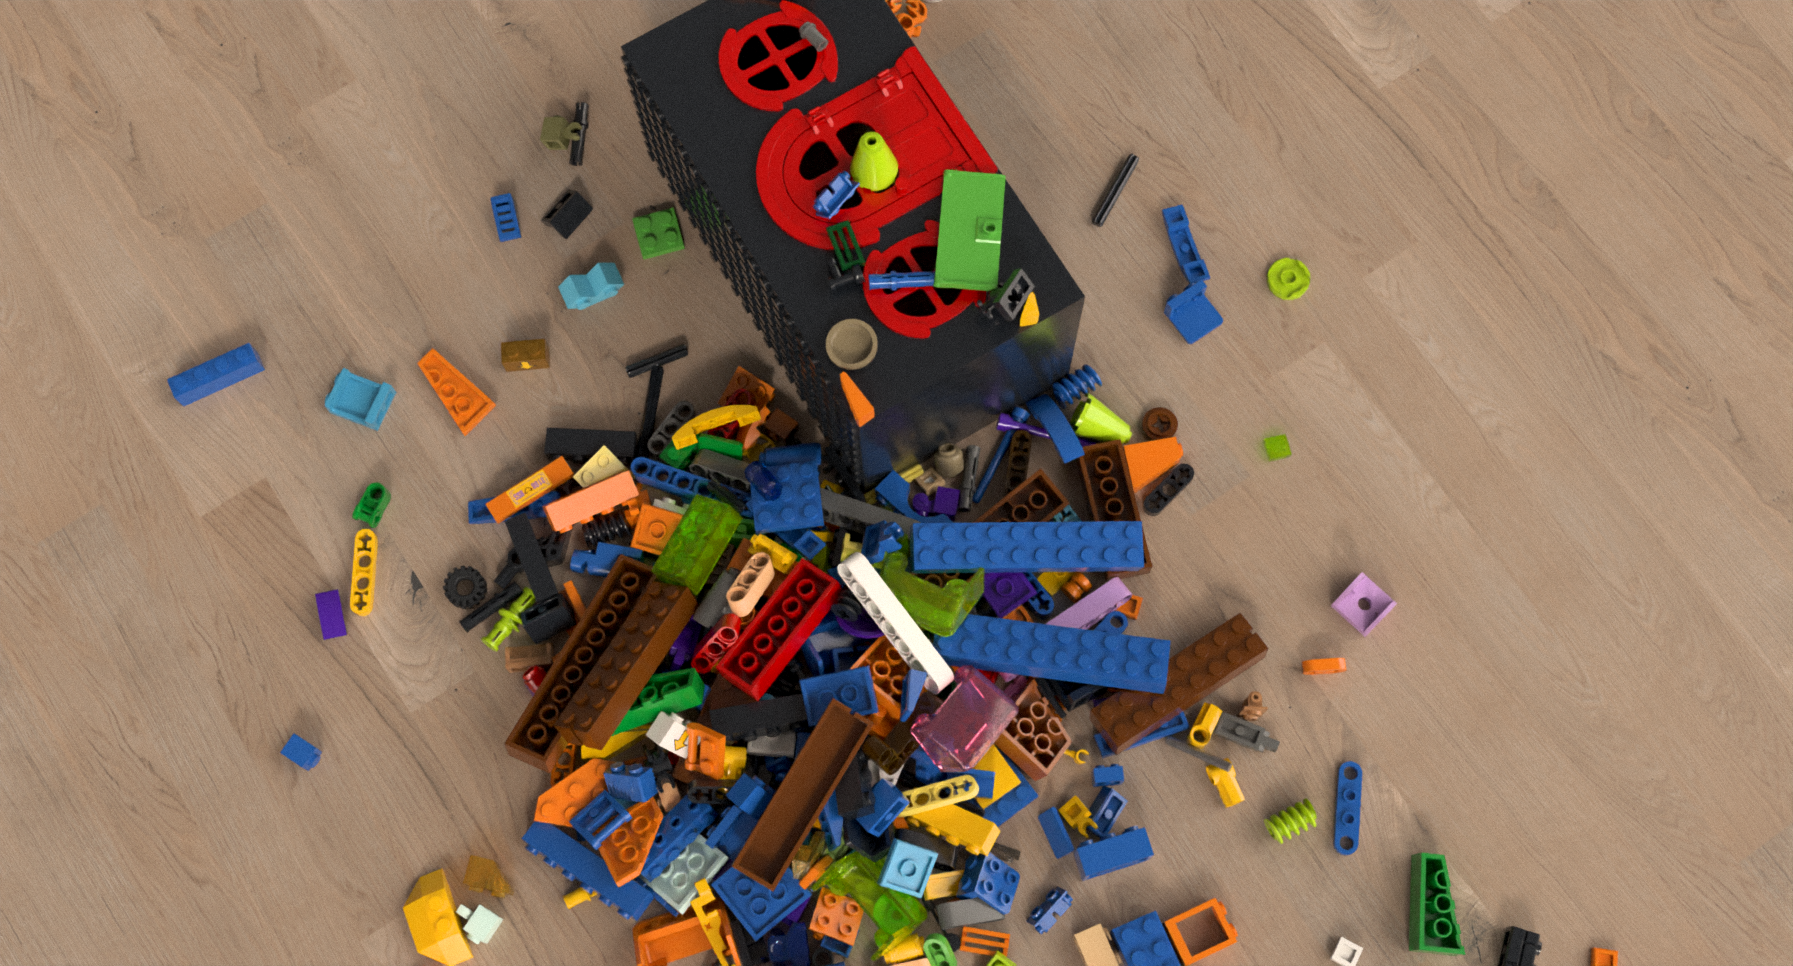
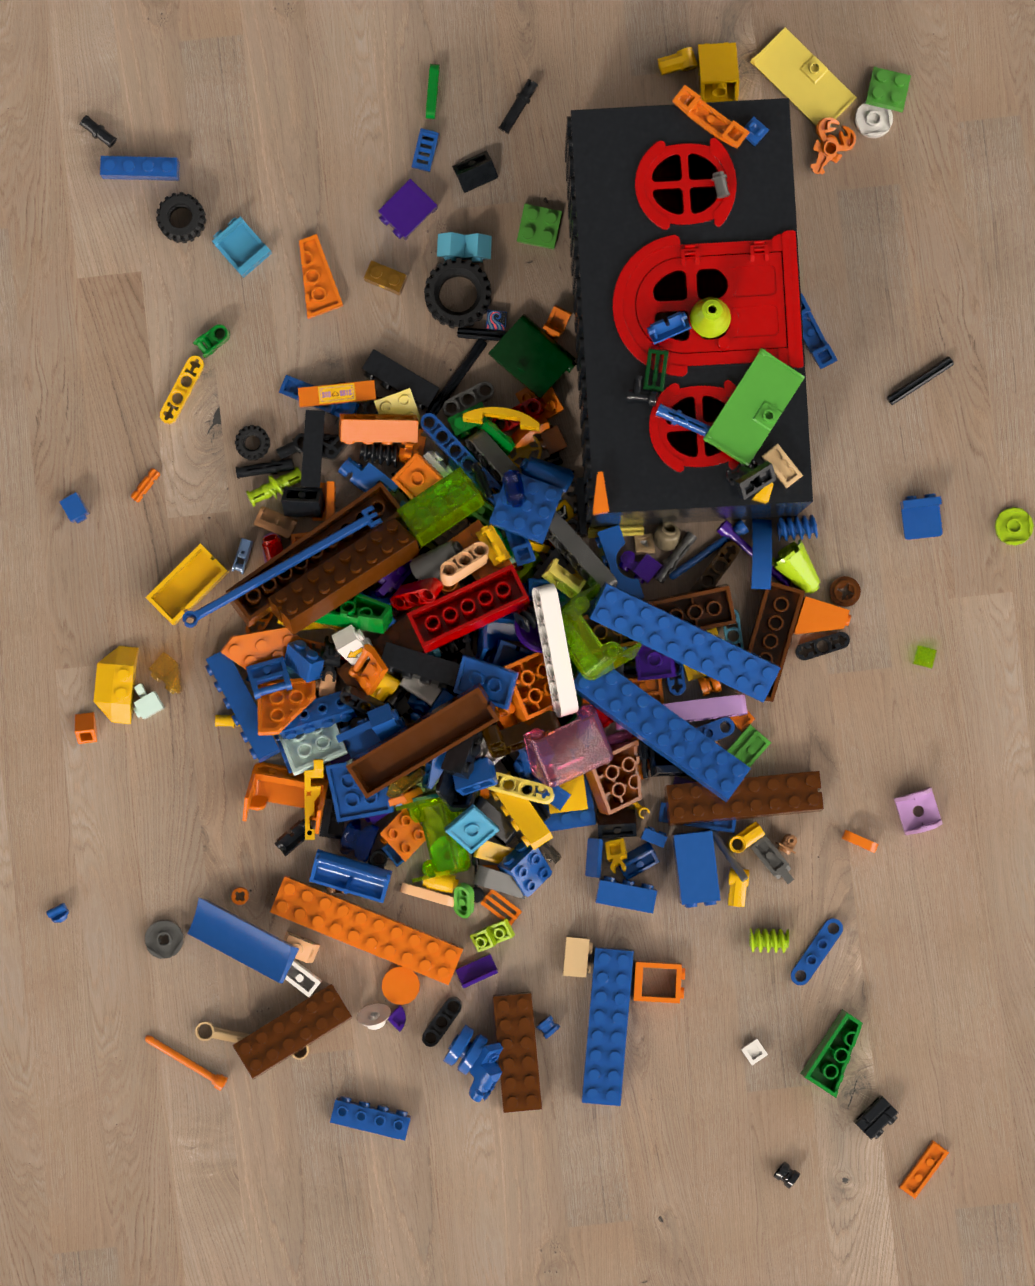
camera: 30 degrees right, 15 degrees up
(156, 361) = (98, 131): none -> black pin
(270, 389) = (173, 203): none -> black tyre
(330, 614) = (142, 411): dark purple slope -> none
(369, 690) = (145, 485): none -> orange axle
(463, 769) = (187, 584): none -> yellow piece
(485, 160) = (432, 91): none -> green beam
(510, 706) = (243, 552): none -> medium blue bar
(514, 280) = (407, 209): none -> dark purple panel
(553, 690) = (283, 566): none -> blue hinge
(557, 132) = (502, 98): olive brick -> none
(600, 309) = (457, 269): none -> black tyre
(660, 341) = (496, 320): none -> tile
(715, 354) = (532, 356): none -> dark green door
(723, 310) = (557, 321): none -> orange bracket
(851, 344) = (619, 450): dark tan piece -> none
(881, 538) = (577, 580): blue plate -> none
(911, 689) = (541, 705): blue slope -> none
(1040, 275) = (782, 466): none -> tan plate
(1041, 916) = (567, 905): blue hinge -> none
(1061, 783) = (617, 824): none -> black panel
(1153, 623) = (749, 746): none -> bright green plate
(1171, 783) = (696, 868): none -> blue brick
(1183, 245) = (947, 457): blue slope -> none

